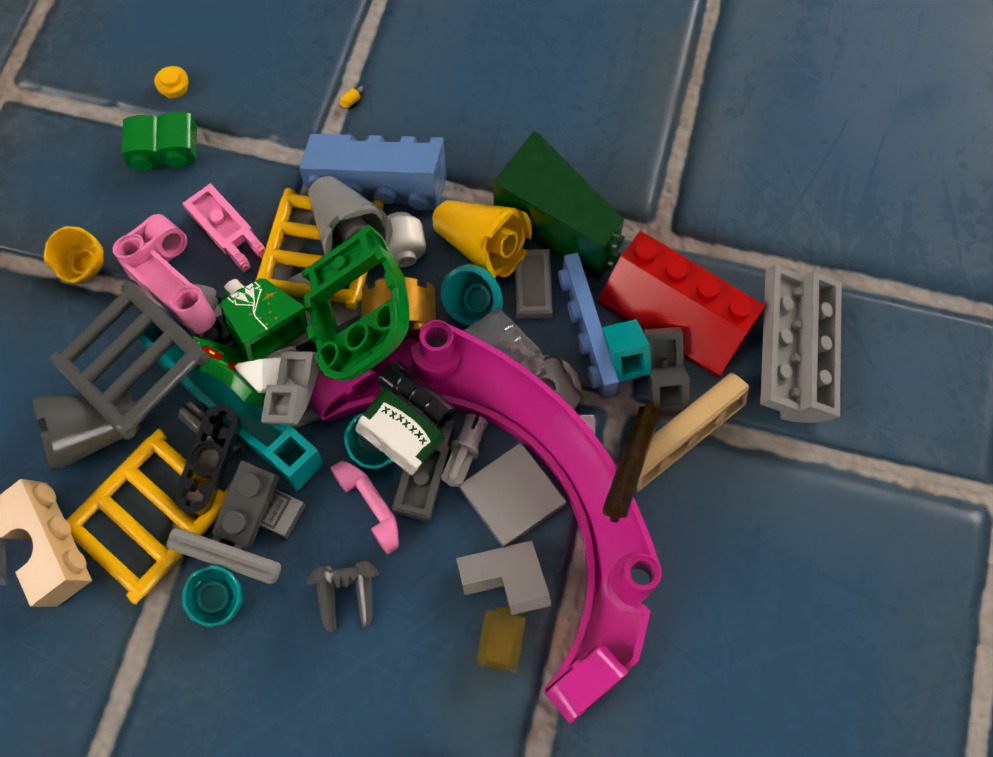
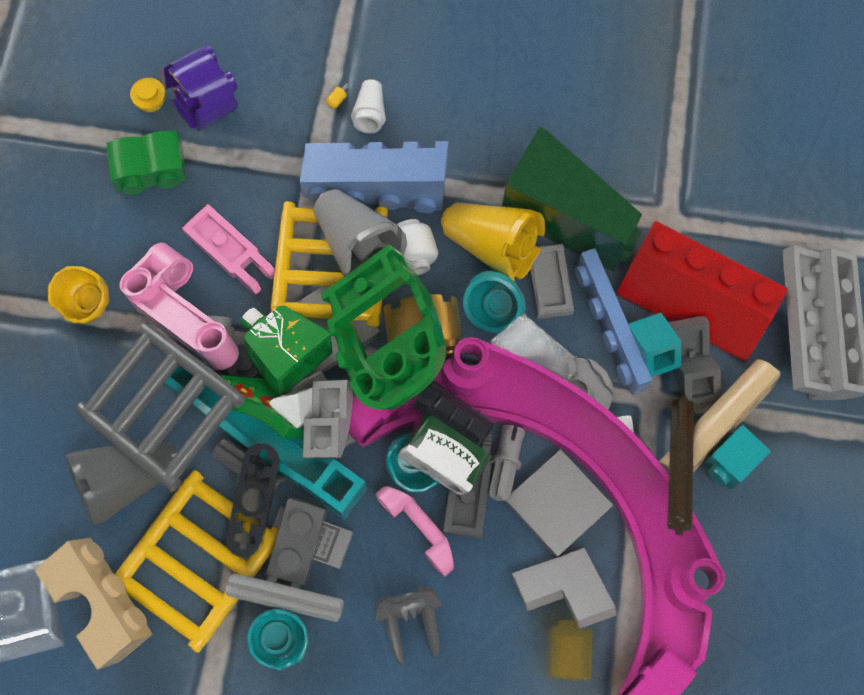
camera: 10 degrees left, 5 degrees up
(219, 76) = (200, 88): none -> dark purple brick
(379, 109) = (369, 108): none -> white cone
(695, 466) = (736, 458): none -> teal brick

